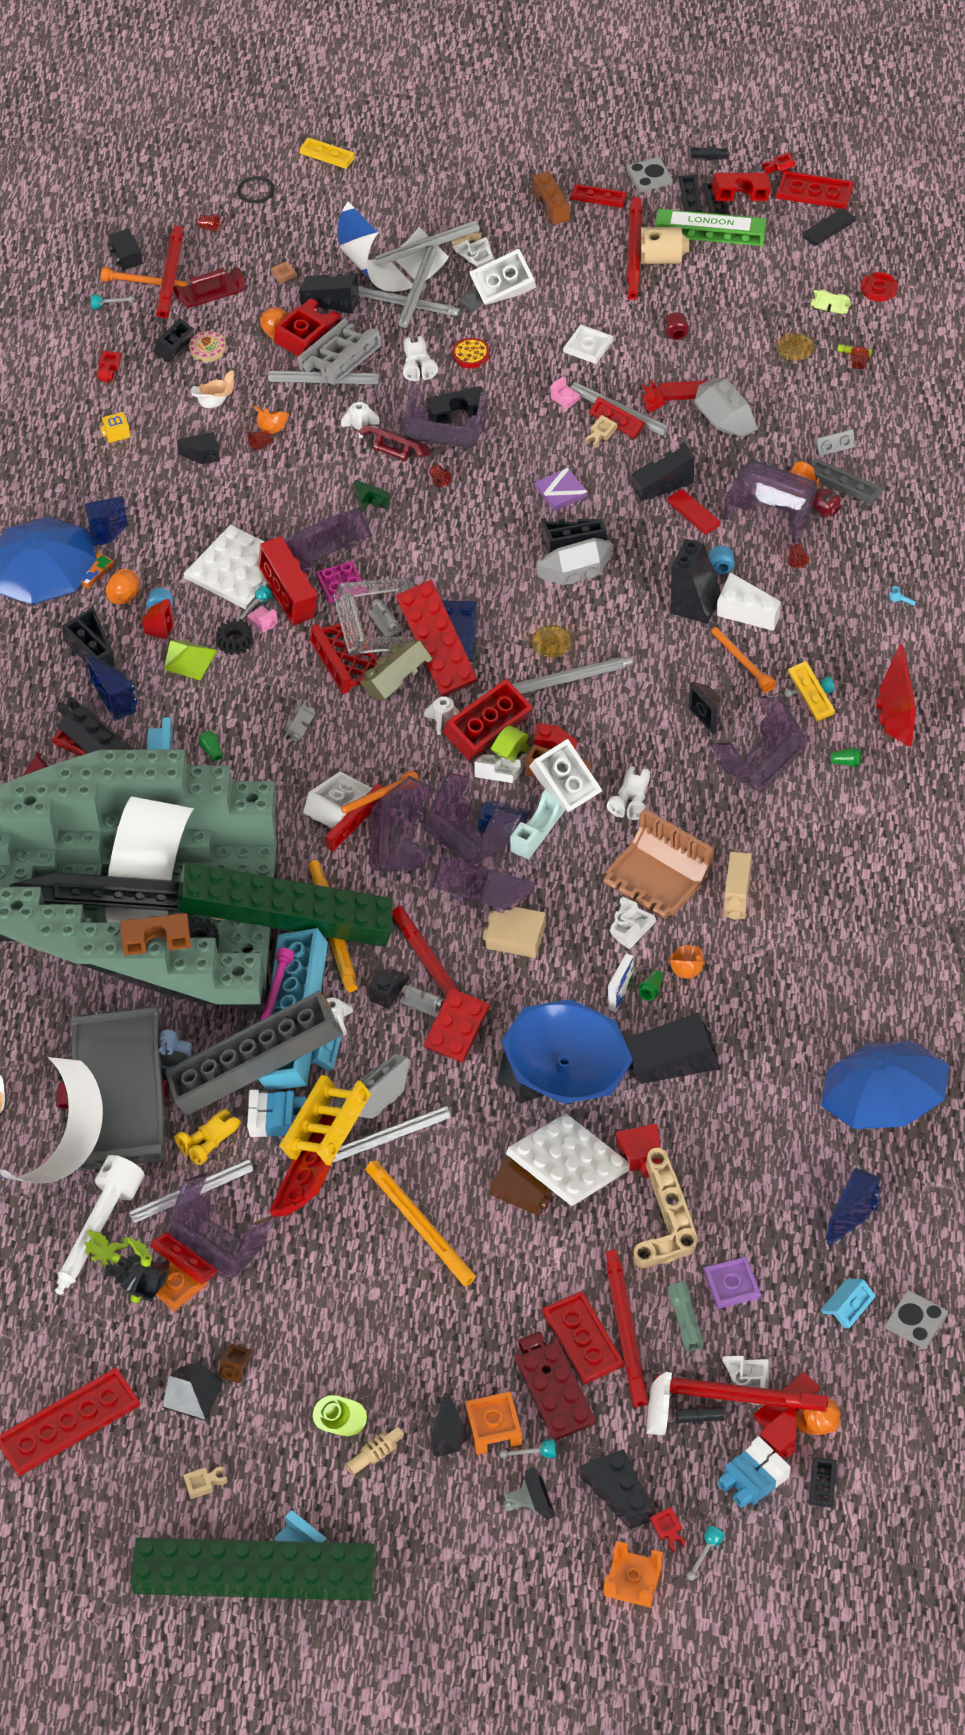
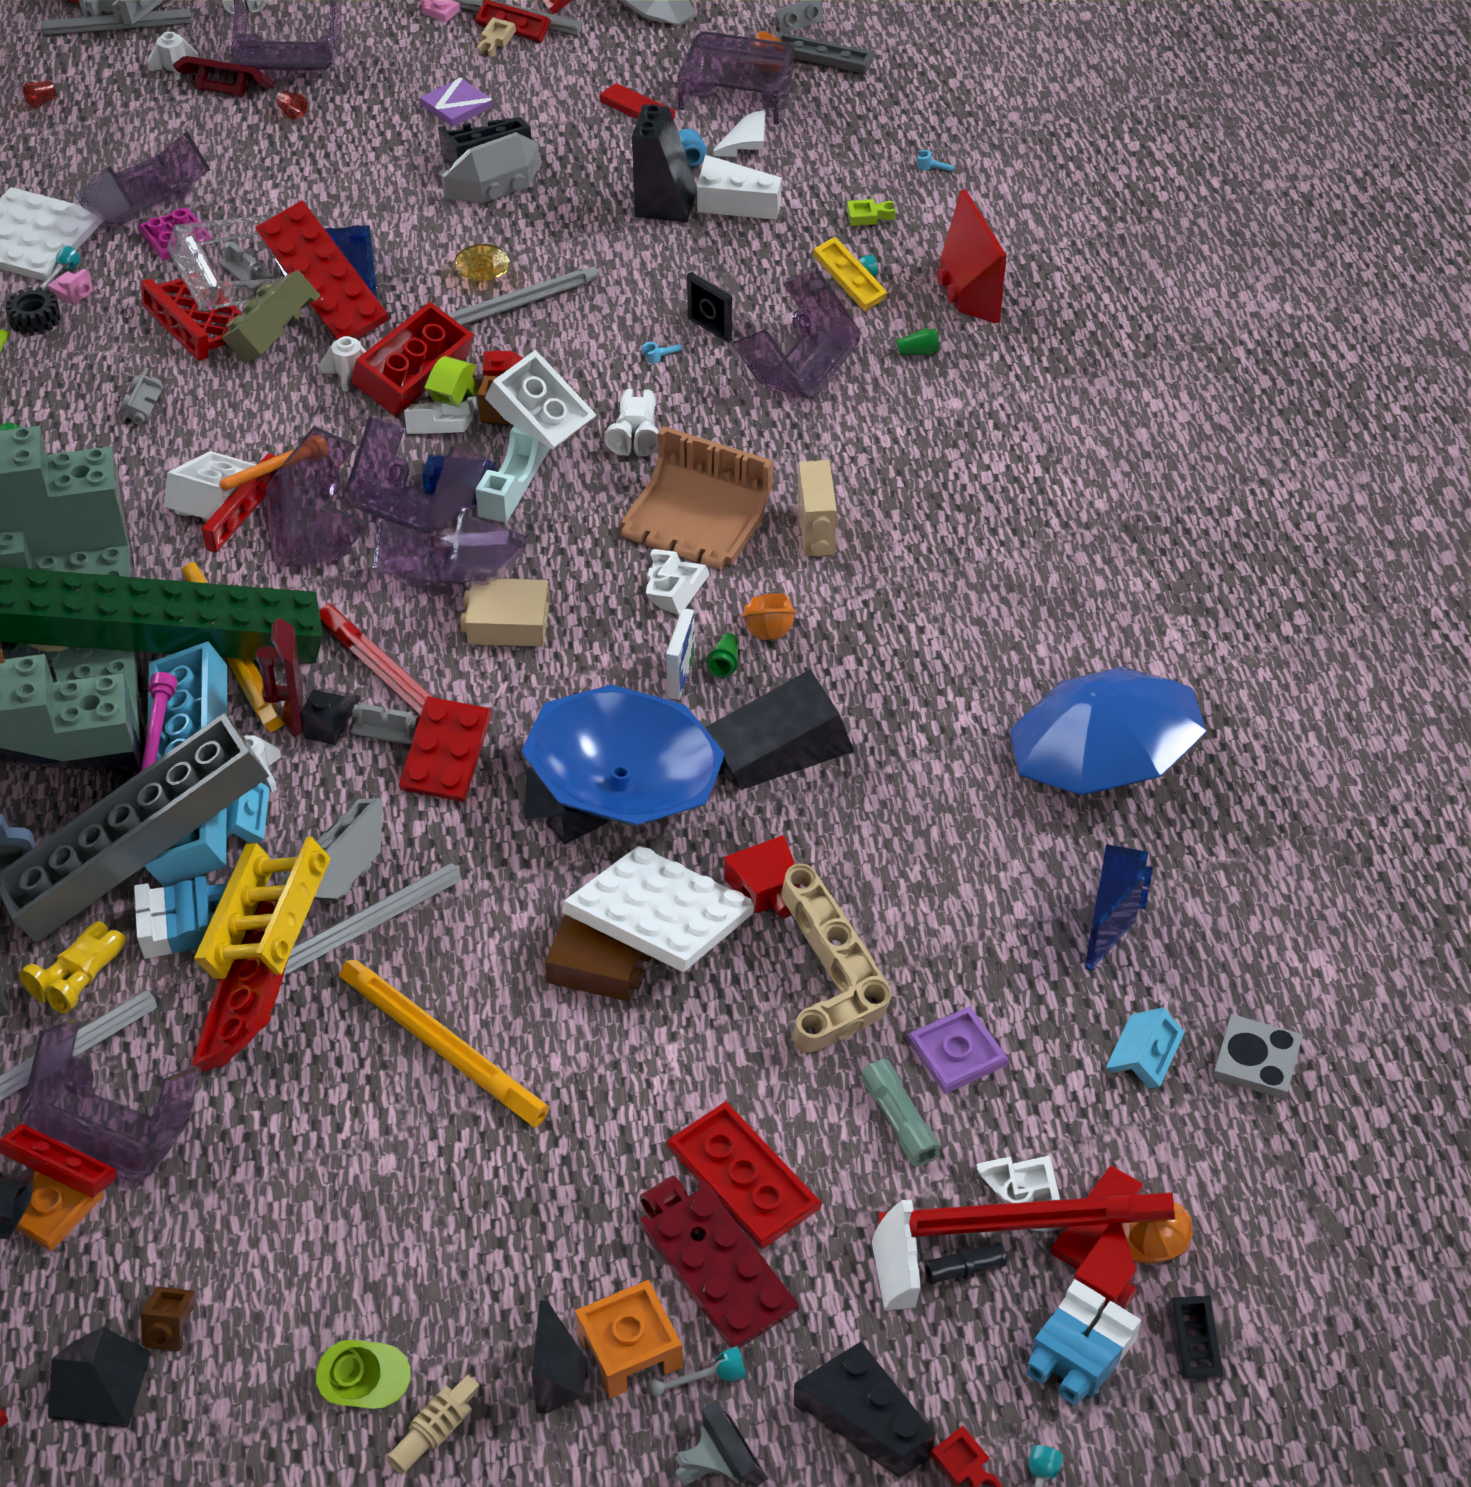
camera: 15 degrees left, 5 degrees down
(273, 421) = (55, 68): orange piece -> none
(287, 580) = (99, 232): red brick -> none
(363, 948) = (284, 652): none -> dark red piece
(372, 495) = (204, 132): dark green slope -> none
(442, 406) = (304, 23): black arch -> none
(626, 1330) = (812, 1152): red piece -> none
(657, 736) = (654, 353): none -> medium azure hand
(666, 475) = (592, 67): black wedge -> none
(765, 681) = (780, 271): orange piece -> none
(766, 553) = (745, 135): none -> white slope
(797, 556) = (791, 139): clear red piece -> none
(827, 502) = (808, 75): dark red head -> none
(839, 636) = (867, 212): none -> lime plate

